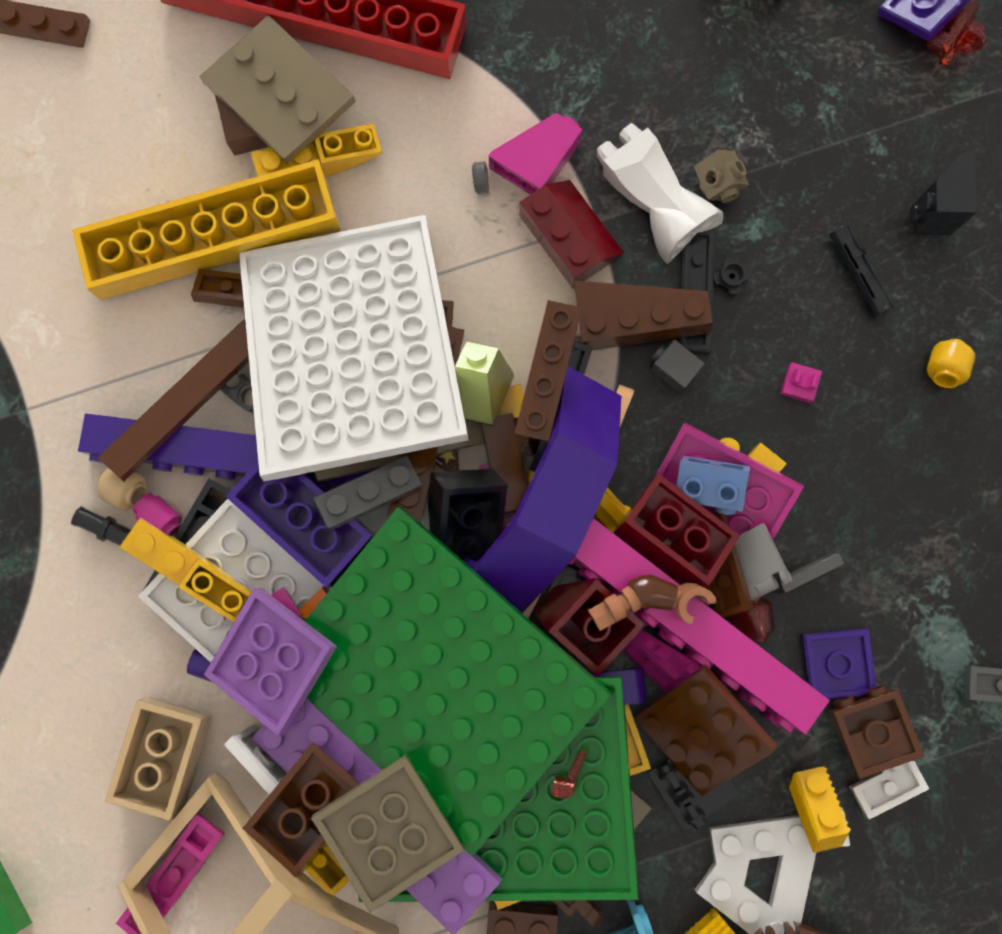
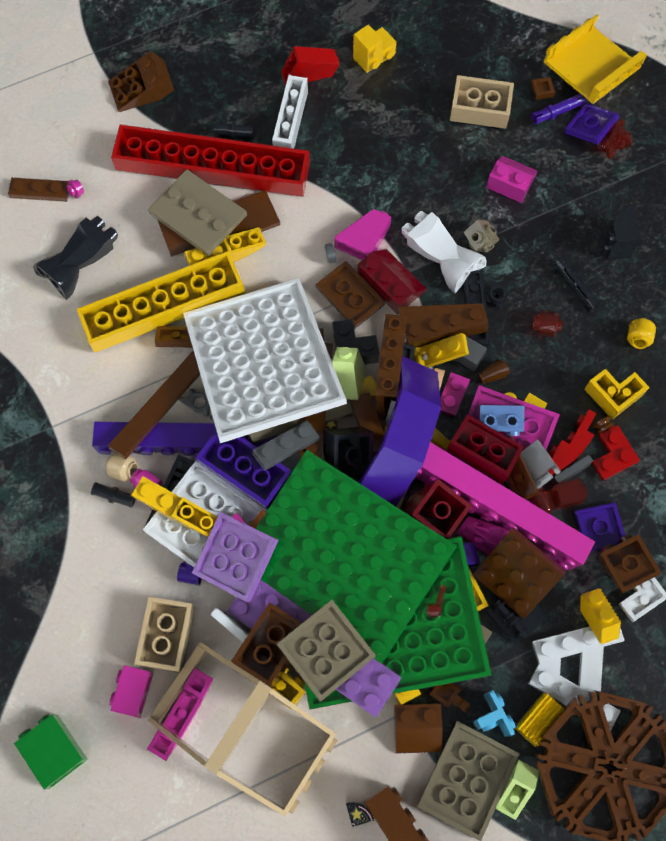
camera: 10 degrees left, 10 degrees down
(94, 28) = (75, 188): none -> dark pink plate
(96, 131) = (83, 249): none -> black hips
(101, 836) = (131, 691): none -> dark pink brick
(376, 99) = (259, 213): none -> reddish brown tile
(485, 328) = (345, 337): none -> black brick
(503, 249) = (350, 294): none -> reddish brown plate
(633, 359) = (442, 350): none -> yellow plate
(642, 428) = (453, 394): none -> dark pink plate
(647, 593) = (472, 482): nougat piece -> none
(711, 400) = (495, 371): none -> reddish brown cone
(781, 83) = (511, 178): none -> dark pink slope
(800, 610) = (569, 494): none -> clear red brick
(801, 382) = (549, 356): dark pink tile -> none
(803, 545) = (569, 451): none -> red slope
(805, 331) = (547, 323): none -> clear red head
(868, 505) = (603, 425): none -> reddish brown bush
(886, 555) = (619, 455): none -> red plate
(891, 462) = (614, 396): none -> yellow brick

